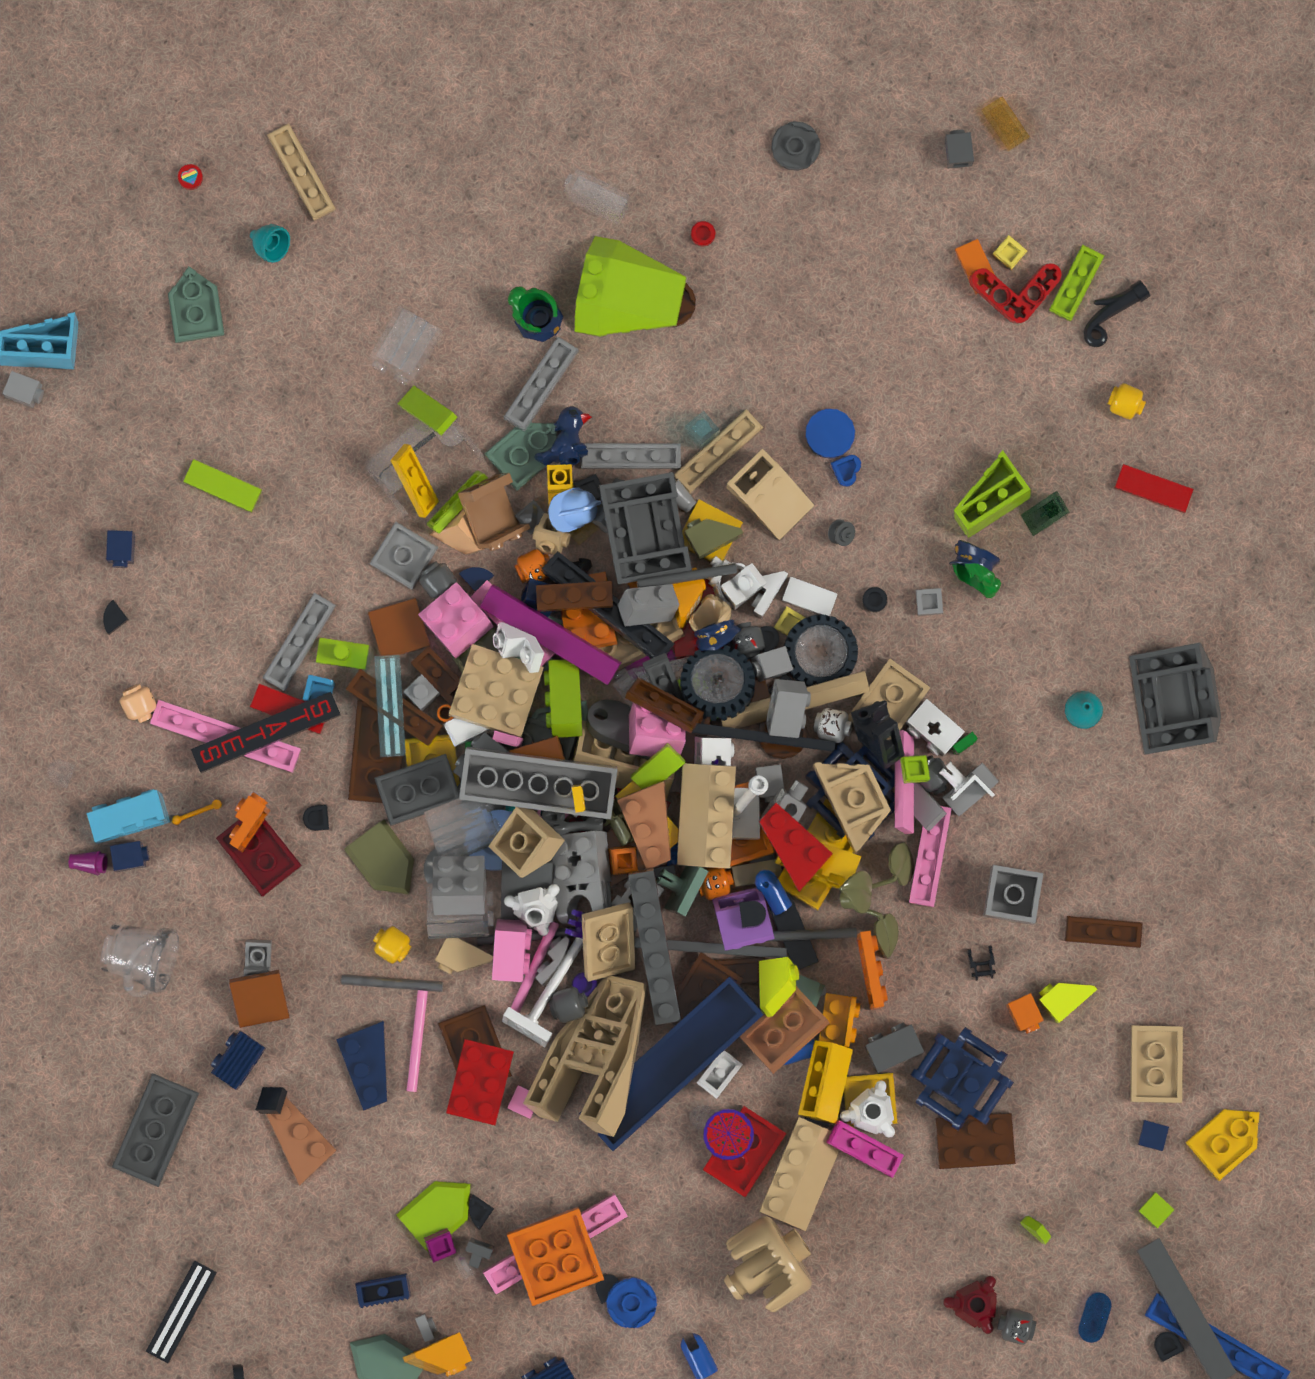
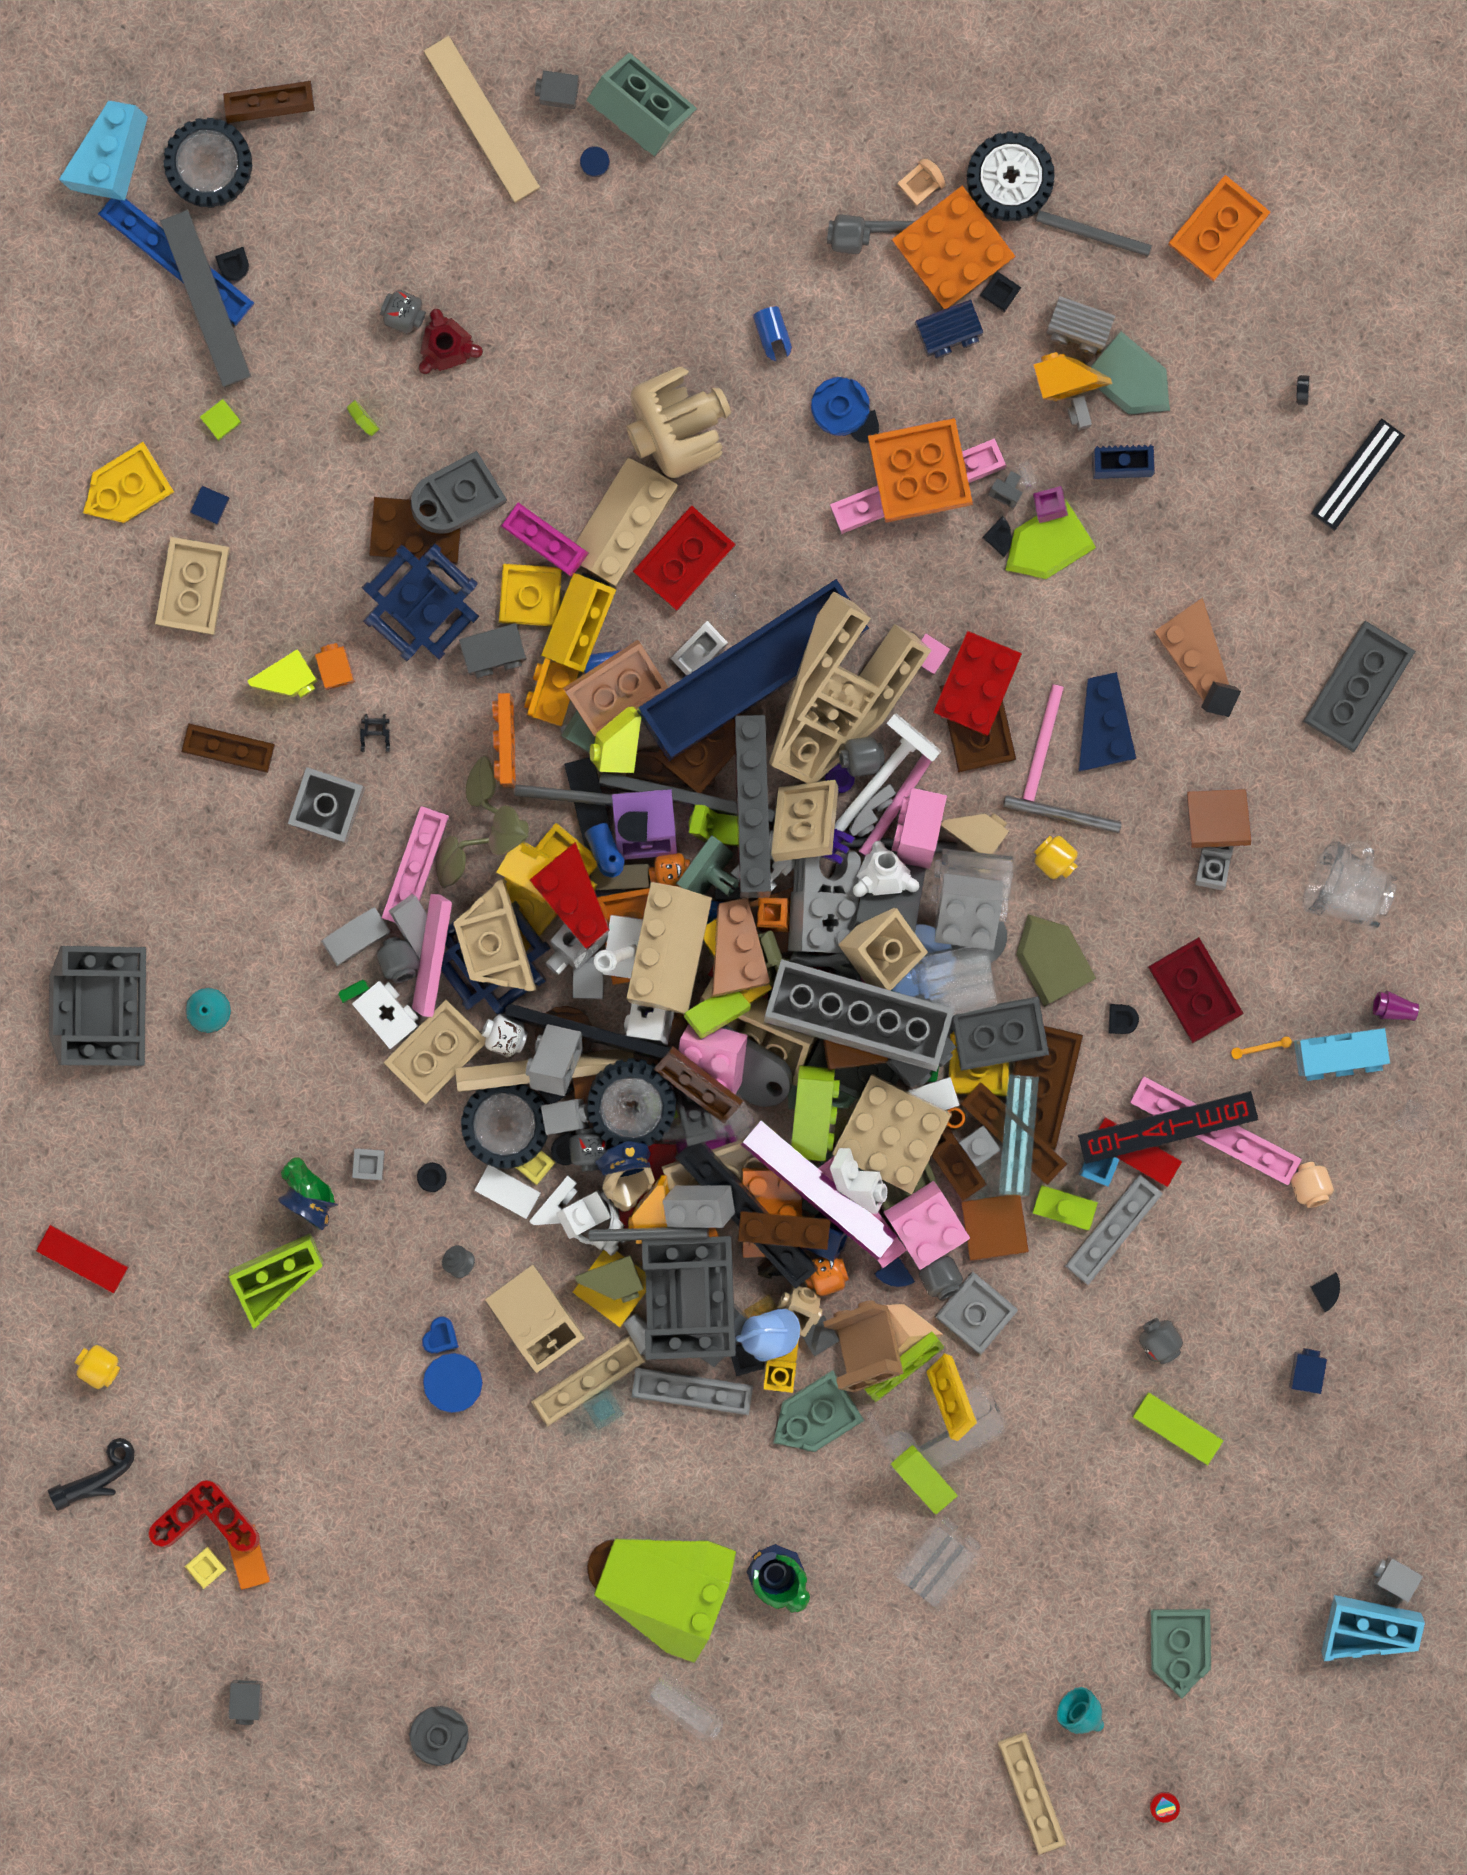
camera: 170 degrees left, 5 degrees up
(129, 856) = (1346, 1006): dark blue brick -> none
(238, 1059) = (1253, 751): dark blue brick -> none
(246, 555) = (1161, 1341): none -> dark grey head
(252, 814) = (1199, 1032): orange plate -> none
(507, 739) = (887, 1074): bright pink tile -> none
(541, 384) = (785, 1493): light grey tile -> none
(567, 445) = (765, 1413): dark blue animal -> none
(578, 798) = (815, 987): yellow tile -> none
(687, 928) = (707, 822): none -> lime bracket
(703, 233) = (565, 1645): red tile -> none
(728, 1134) = (699, 579): tile -> none
(871, 1111) = (530, 581): white rock -> none
(872, 729) = (458, 1010): black tile -> none
(915, 769) = (417, 967): lime tile -> none
(944, 1176) = (458, 494): none -> dark grey tile
(961, 782) = (365, 943): white bracket -> none
(1005, 123) = (185, 1725): clear yellow tile -> none
(1045, 513) = (215, 1247): clear green slope -> none
(1076, 283) = (132, 1519): lime tile -> none
(1094, 1317) = (311, 309): clear blue tile -> none

